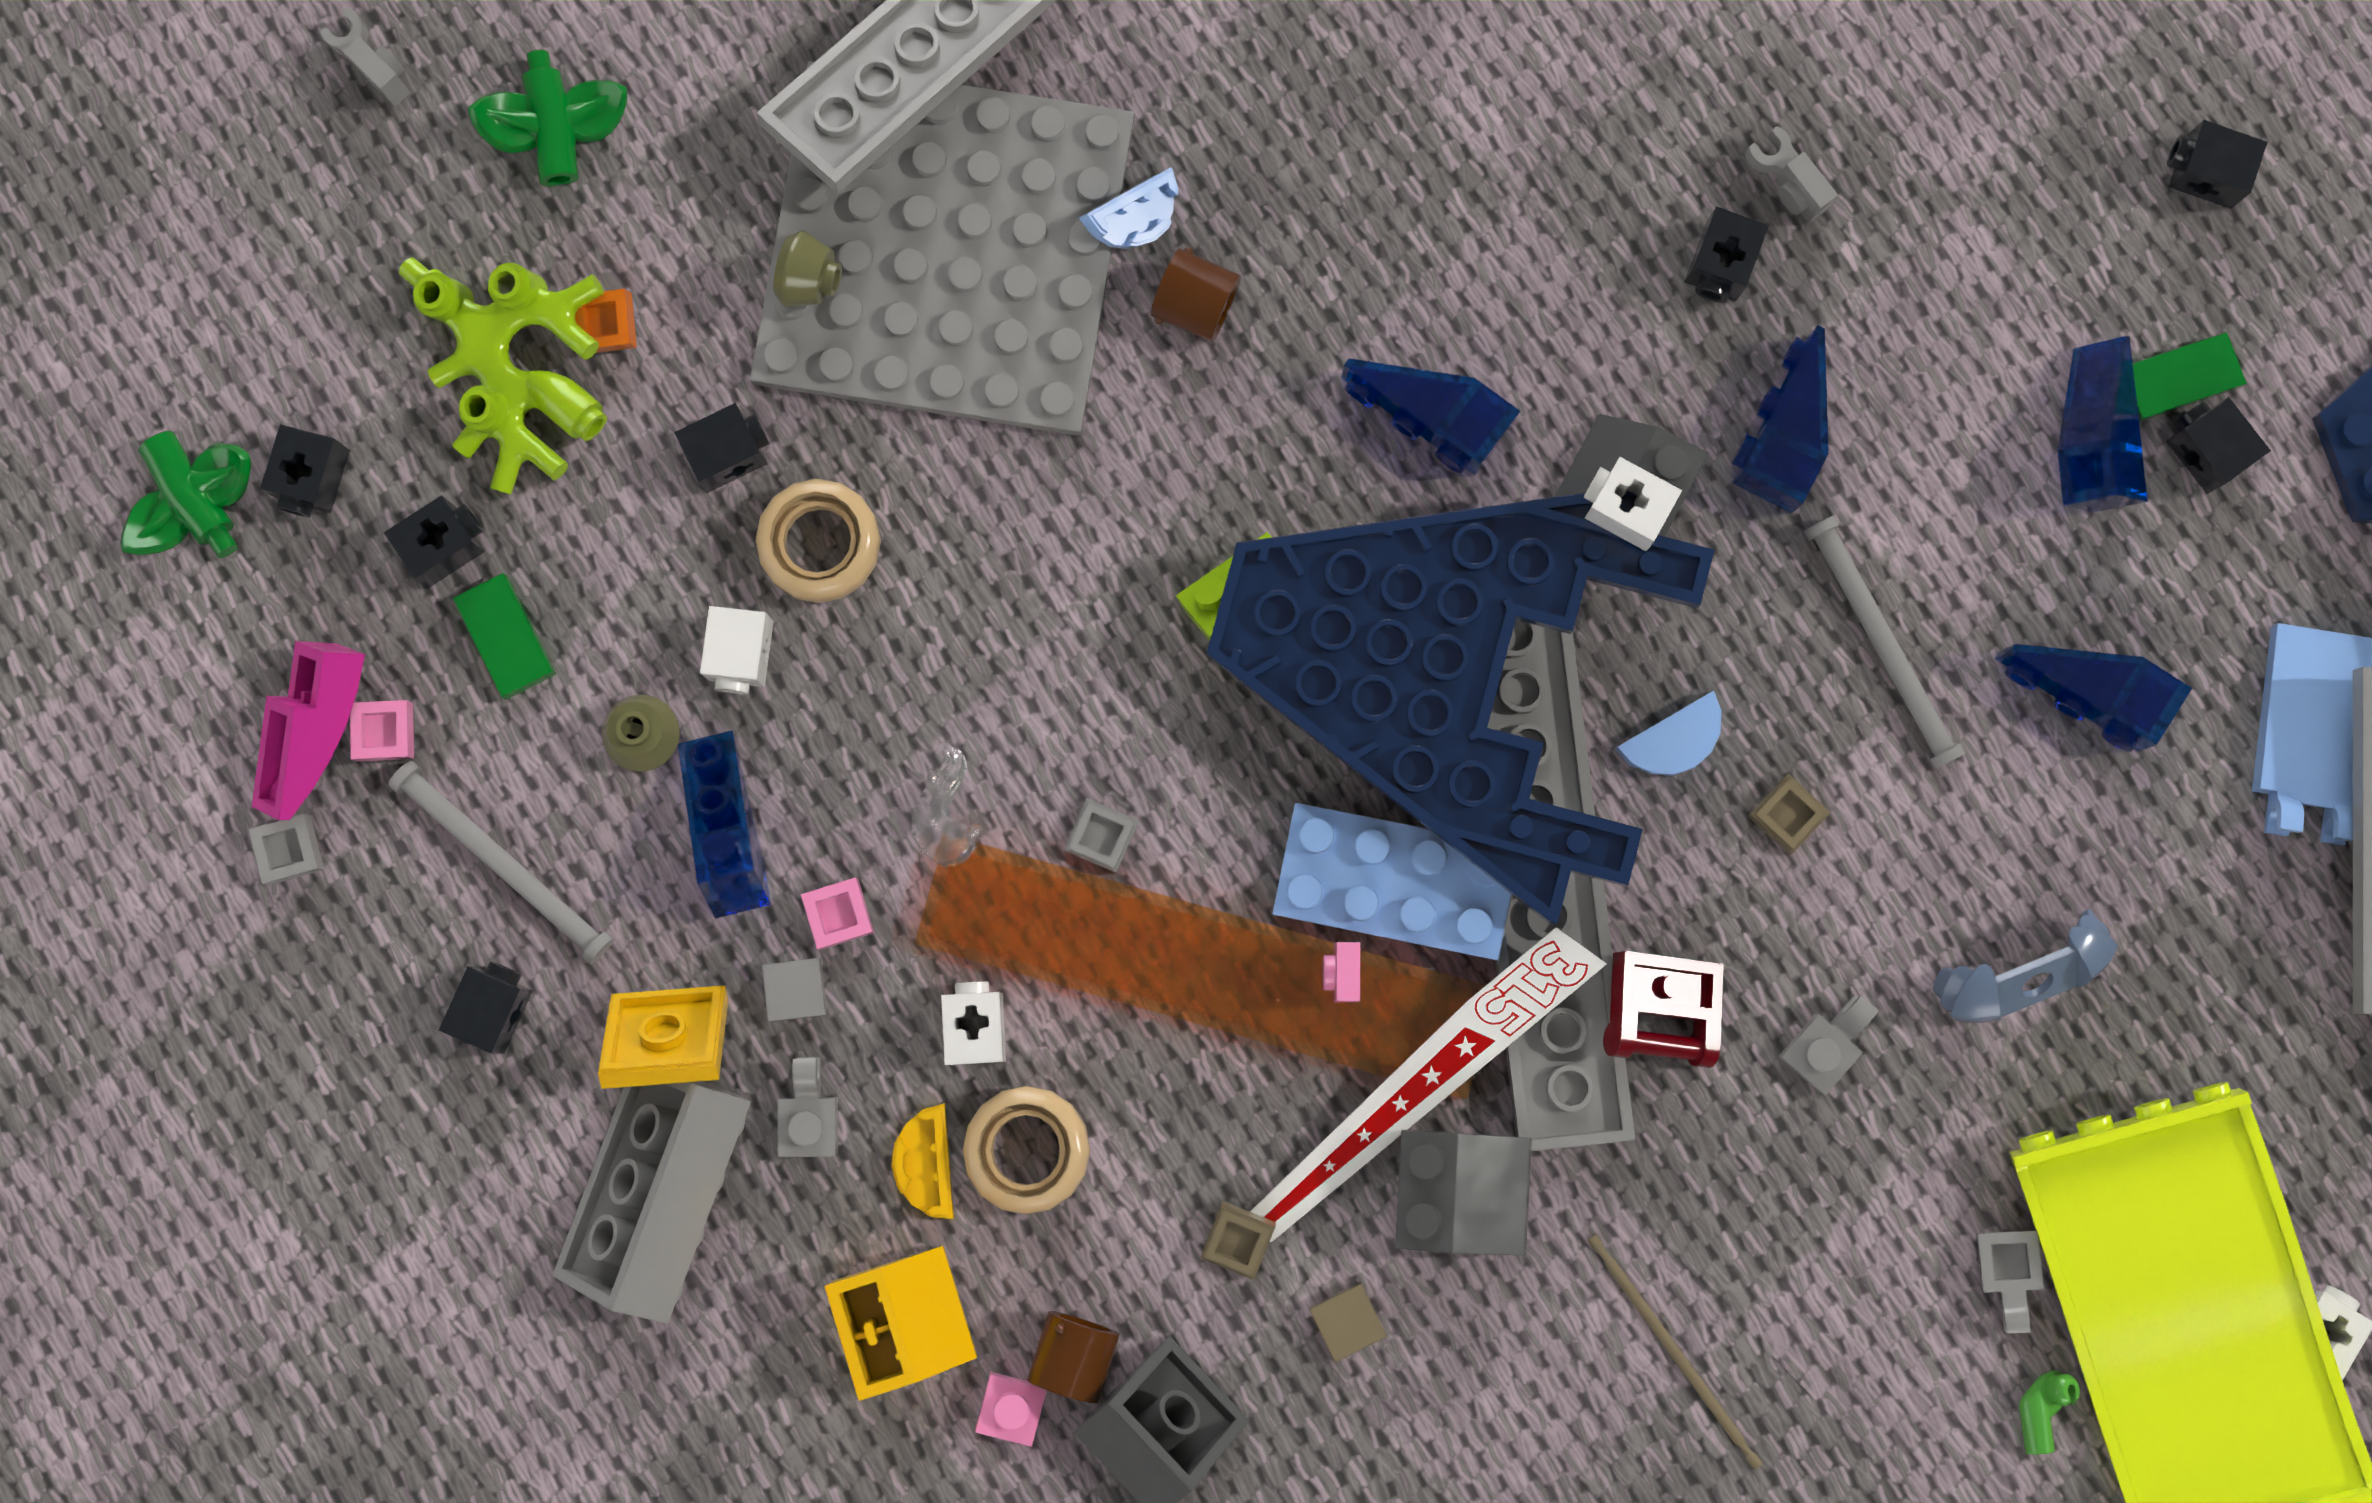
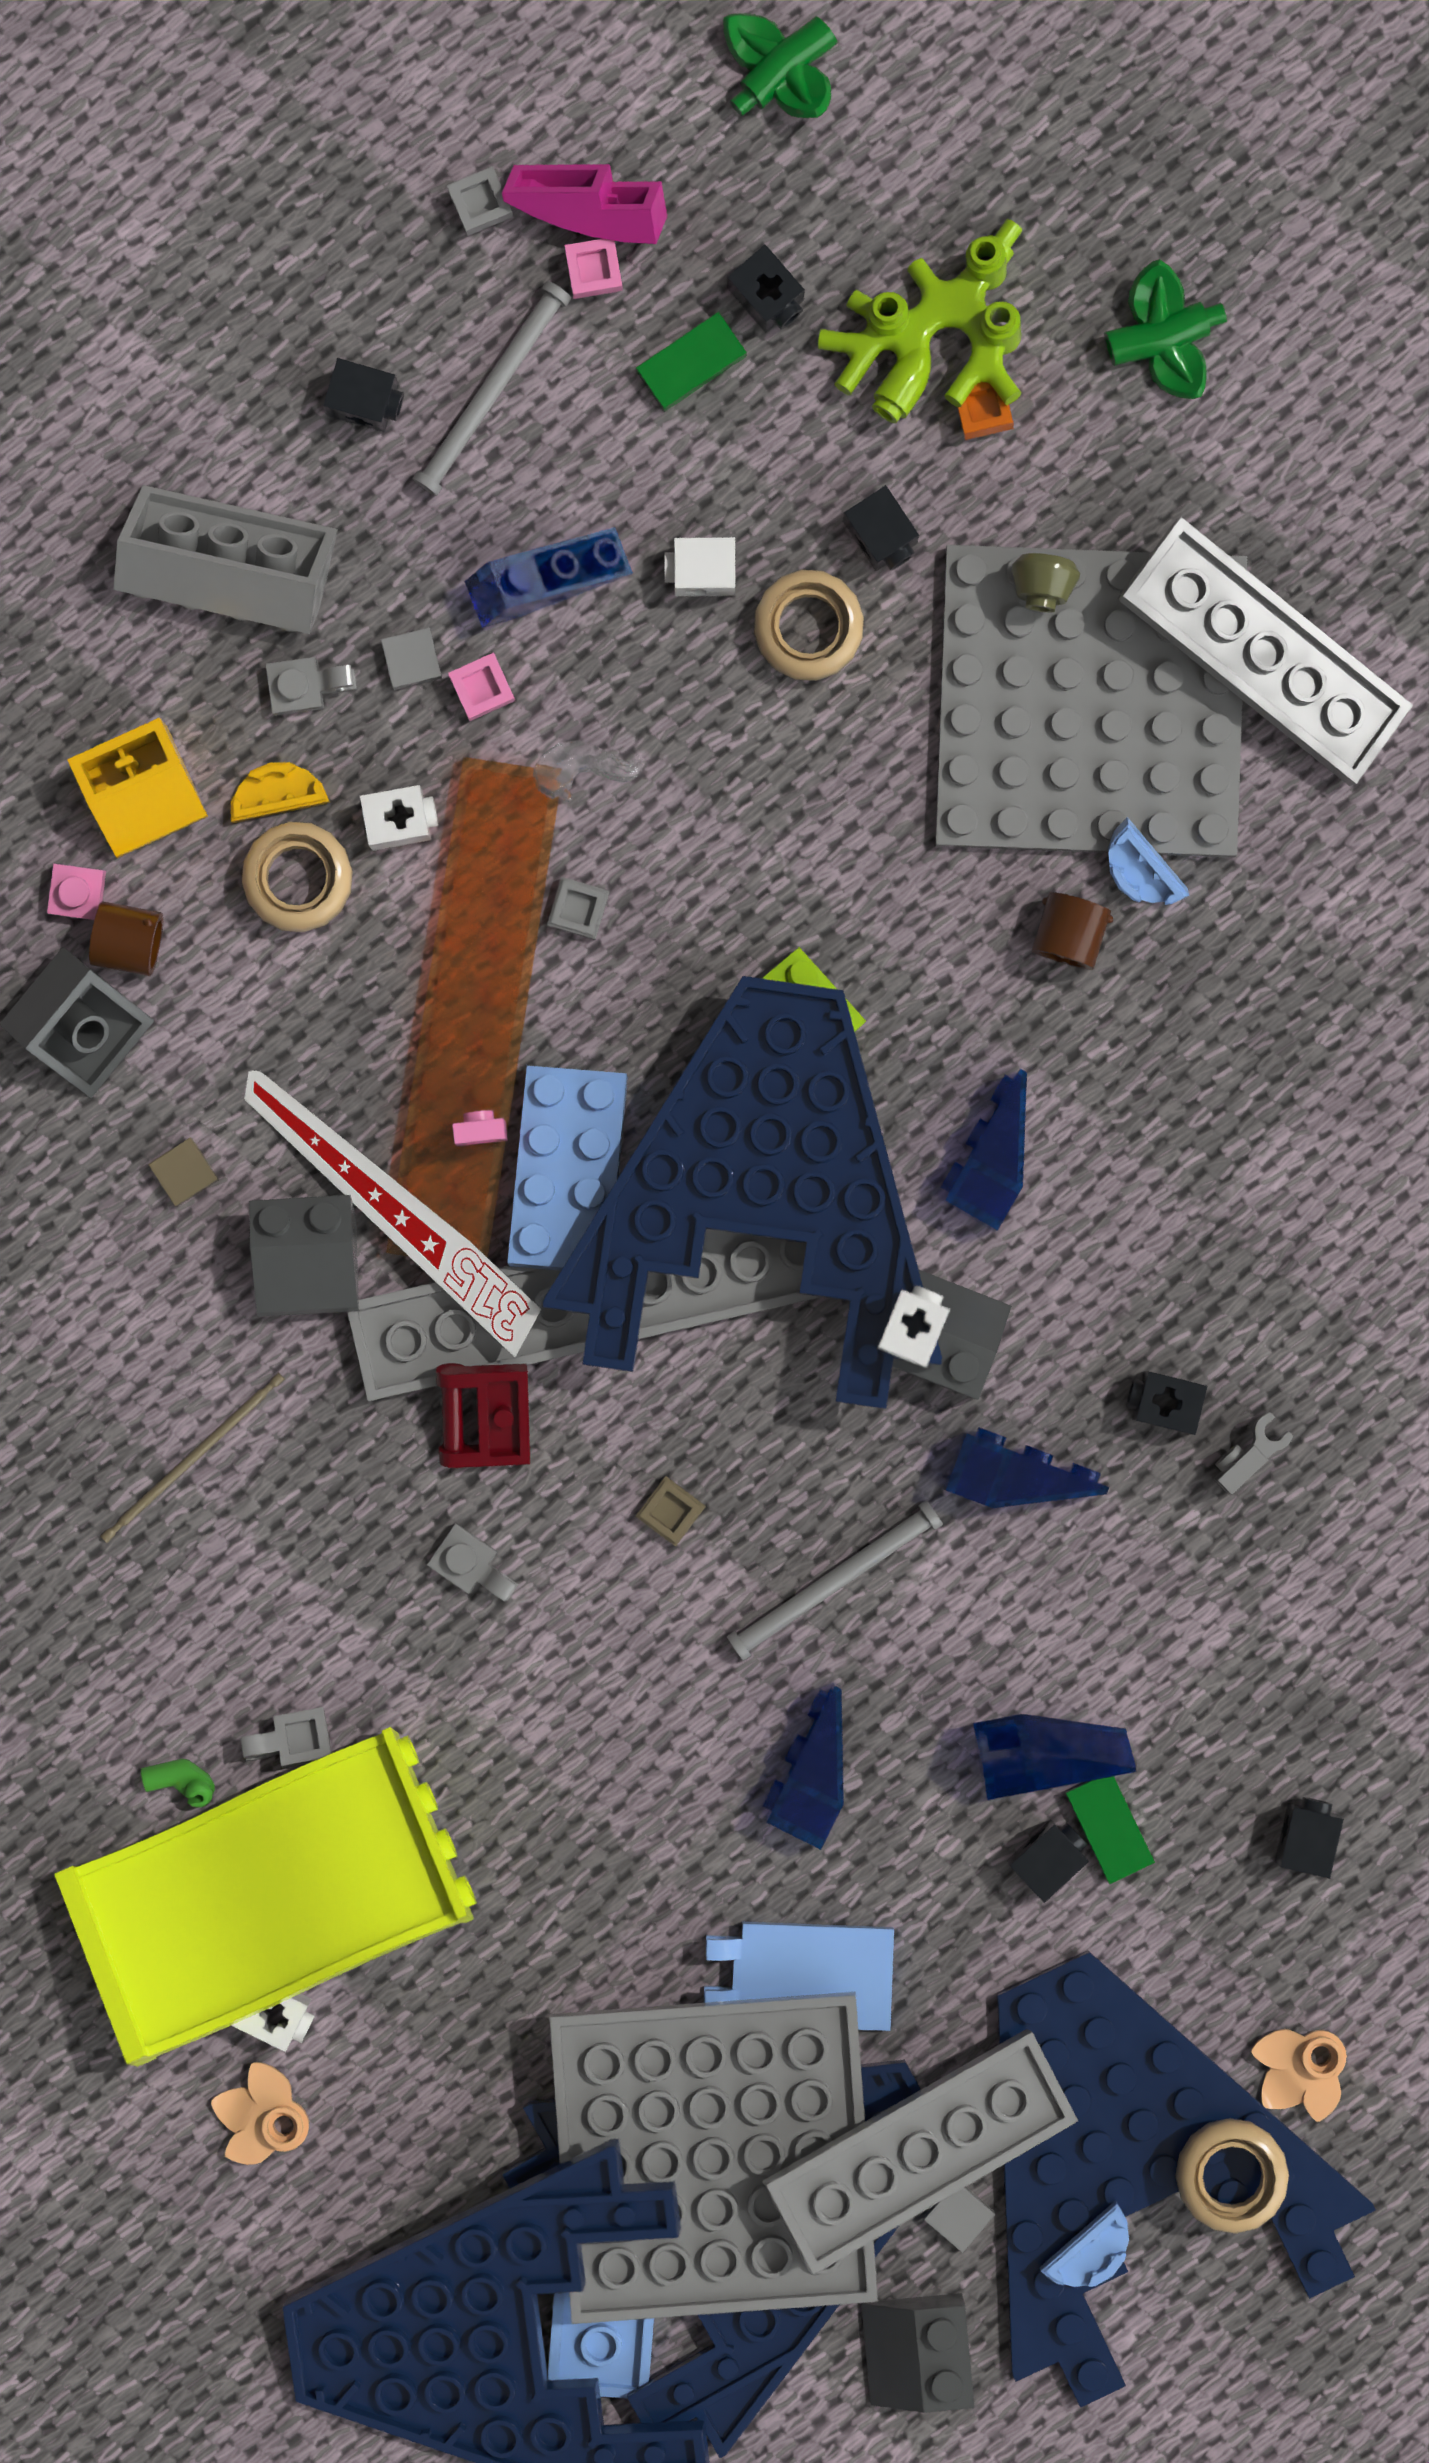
camera: 80 degrees right, 5 degrees up
(299, 451) = (831, 168): black brick -> none
(376, 66) = (1191, 170): light grey plate -> none
(655, 737) = (615, 506): olive cone -> none
(663, 1037) = (355, 551): yellow tile -> none
(1238, 1240) = (242, 1069): dark tan tile -> none
(1677, 741) = (723, 1405): light blue tile -> none
(1983, 997) = (526, 1688): sand blue piece -> none

